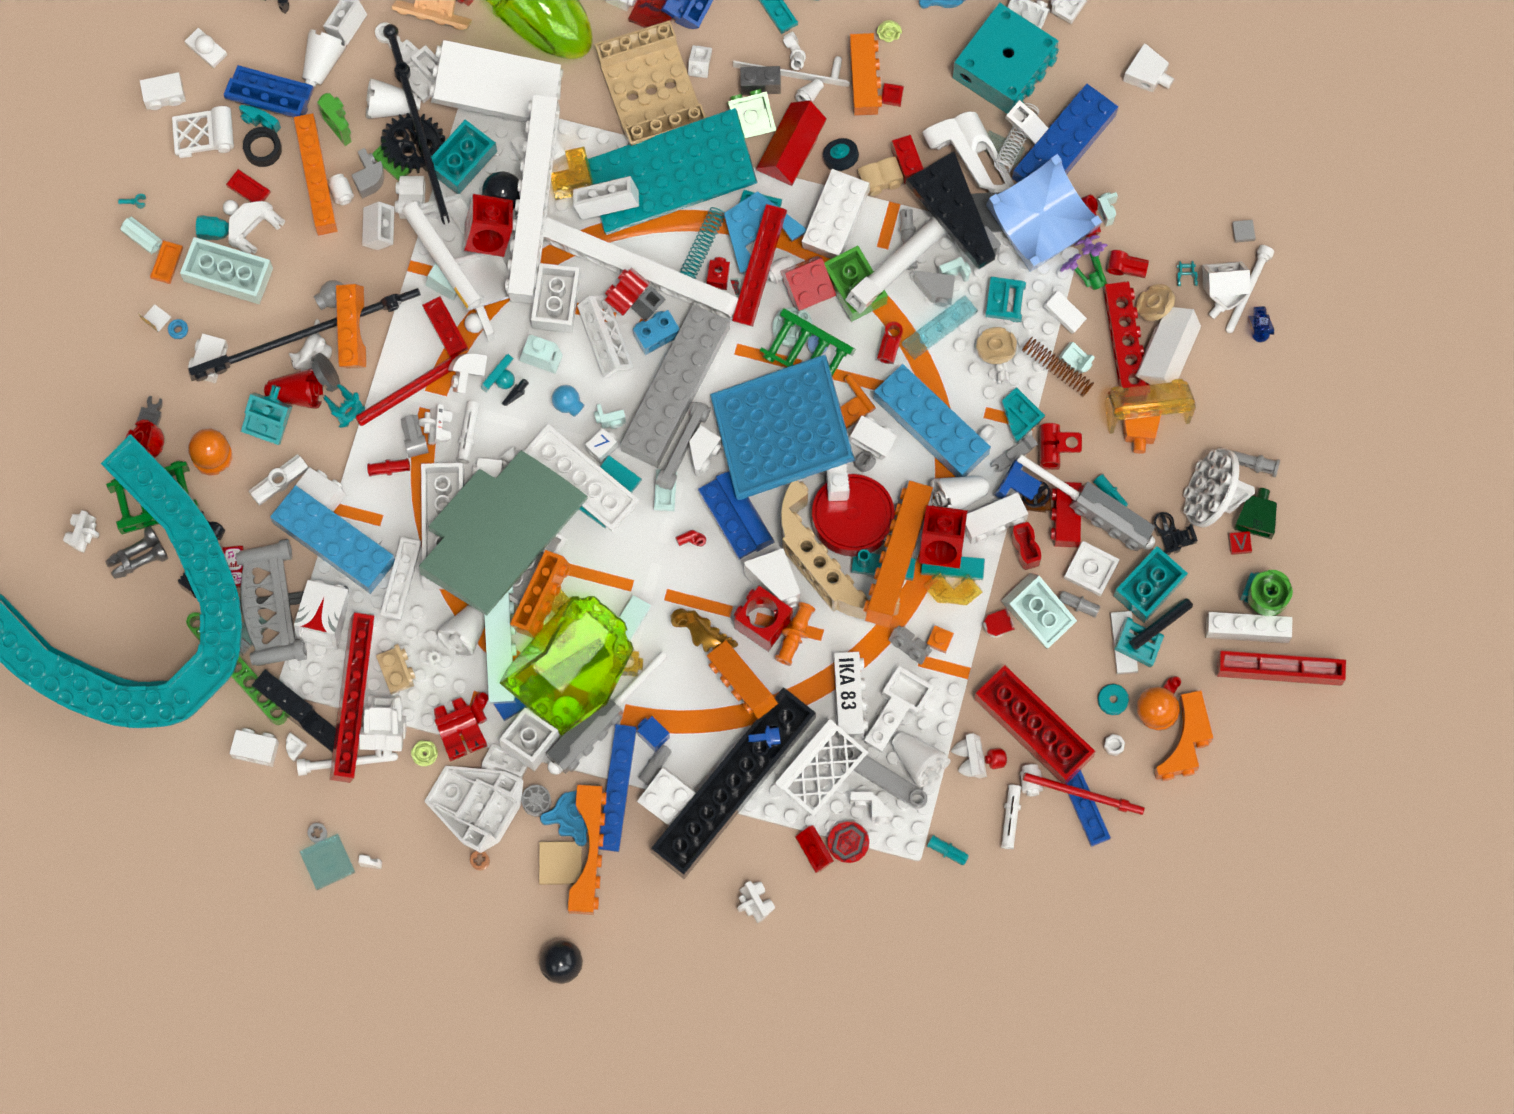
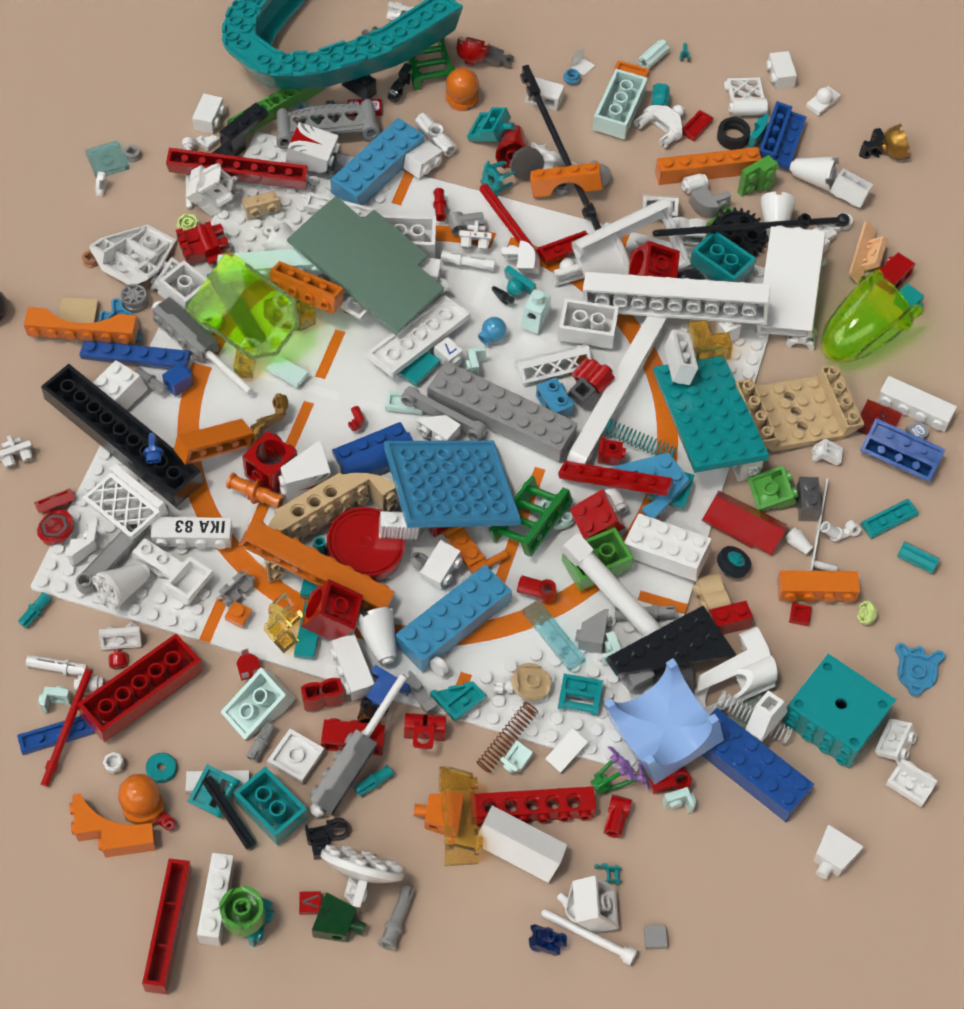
camera: 90 degrees right, 15 degrees down
(1045, 810) = (55, 695): none -> light aqua bracket
(1155, 302) = (573, 836): tan tile -> none

